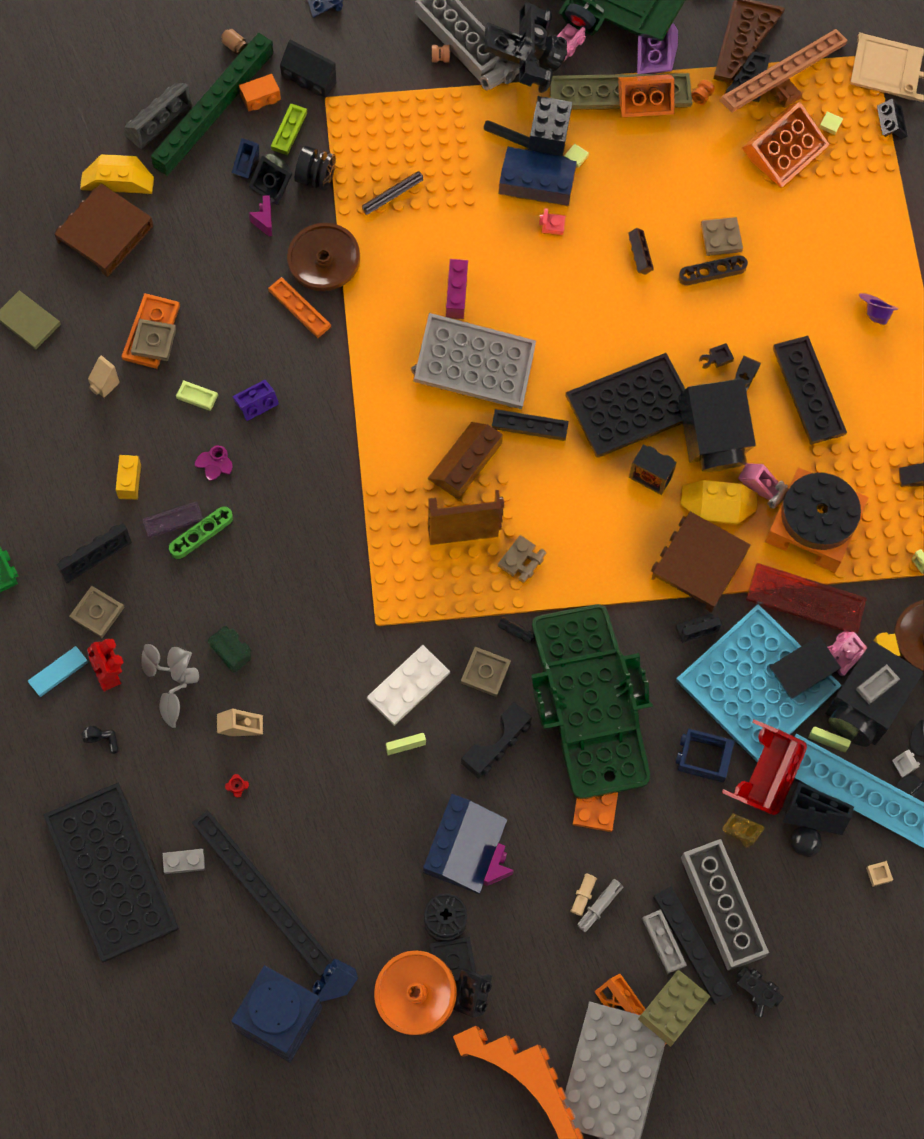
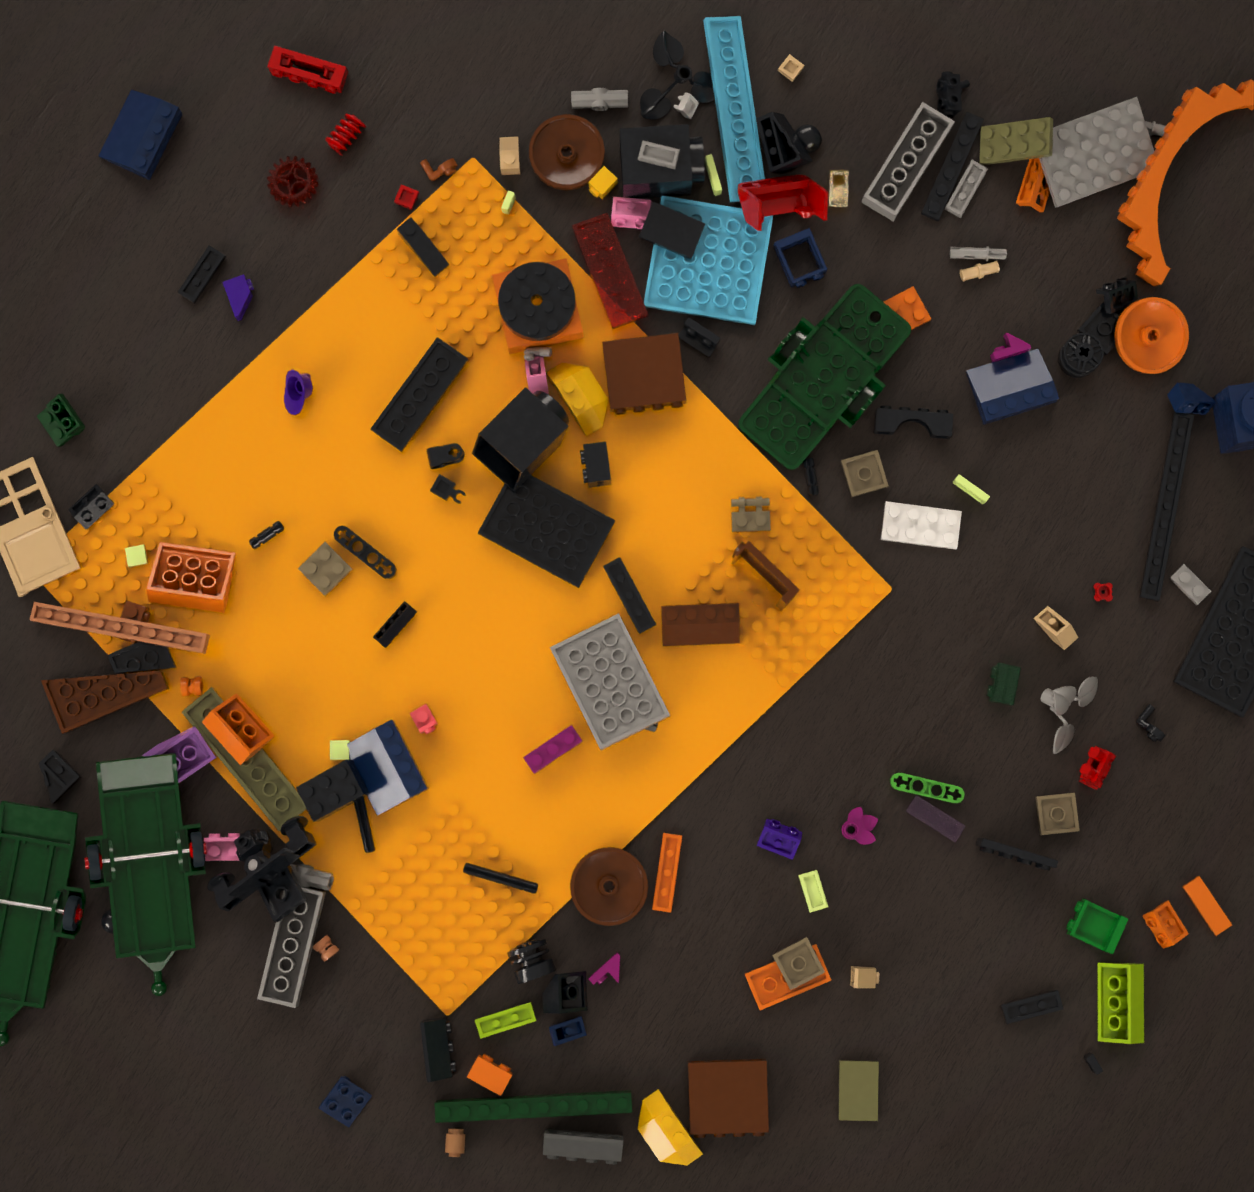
camera: 125 degrees left, 15 degrees up
(57, 671) = (1126, 804): medium azure tile -> none
(128, 477) = (930, 883): yellow brick -> none
(779, 215) = (266, 535): none -> black axle

